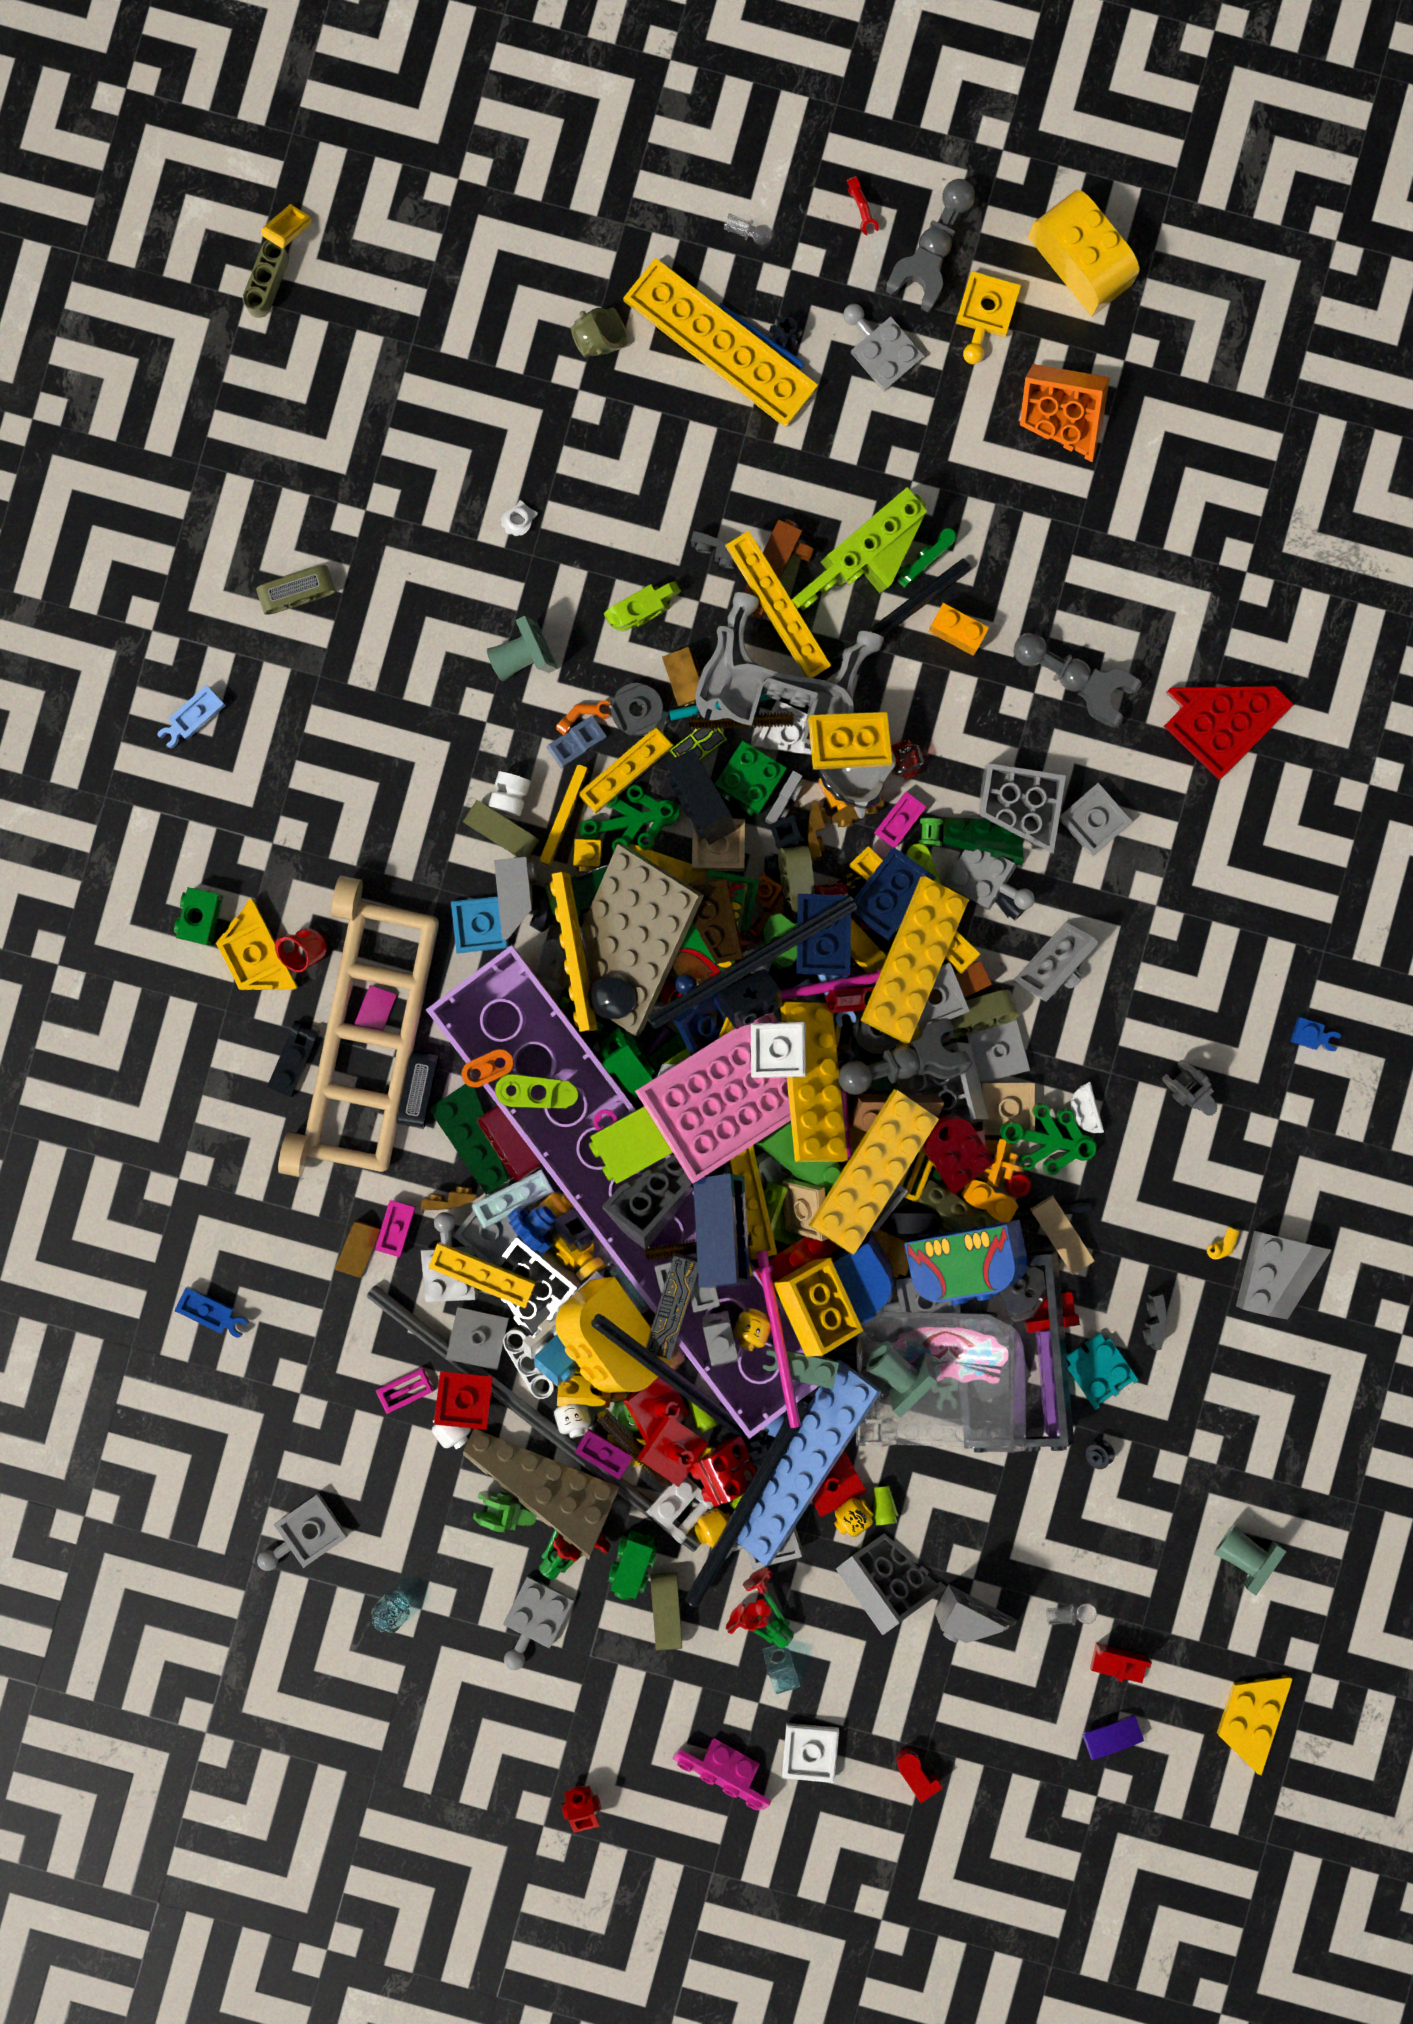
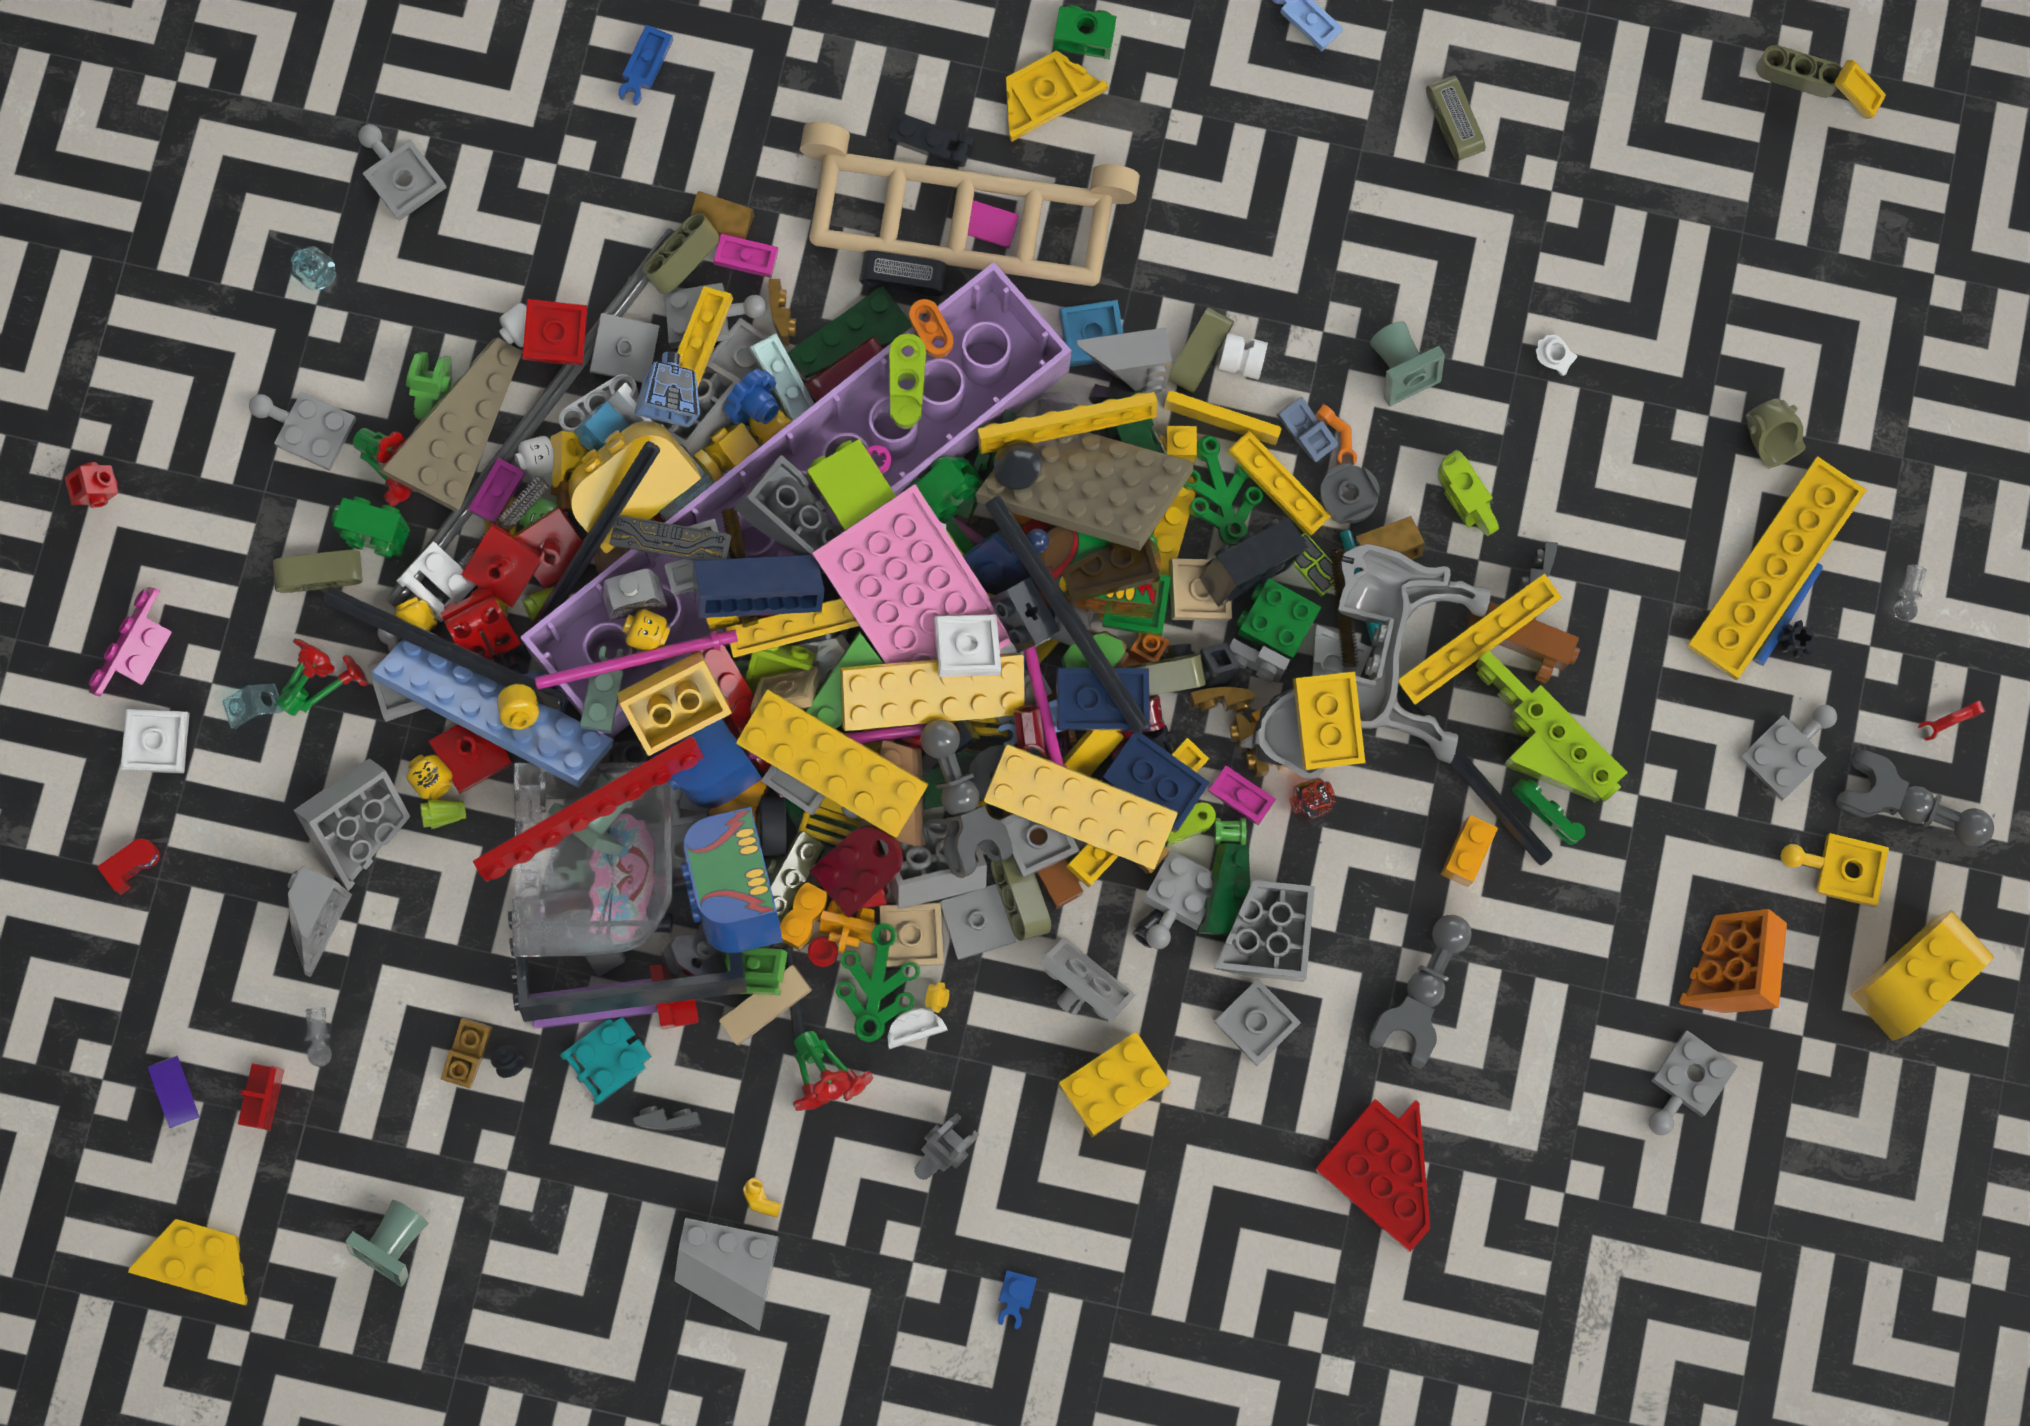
camera: 80 degrees right, 10 degrees down
(310, 941) = (1052, 150): red helmet -> none
(392, 1286) = (681, 253): none -> olive beam
(424, 1381) = (574, 296): dark pink tile -> none
(531, 1302) = (669, 392): none -> torso
(571, 1223) = (749, 440): black brick -> none
(808, 1442) = (517, 707): none -> yellow head
(901, 1373) = (597, 804): none -> red plate
(1038, 1236) = (763, 970): none -> bright green plate
(1061, 1089) = (937, 997): none -> yellow plate
(1090, 1489) = (466, 1053): none -> pearl gold slope
(1103, 1199) = (831, 1084): none -> plant
(1143, 944) = (1114, 1084): none -> yellow brick
(1157, 472) = (1674, 1080): none -> light grey plate

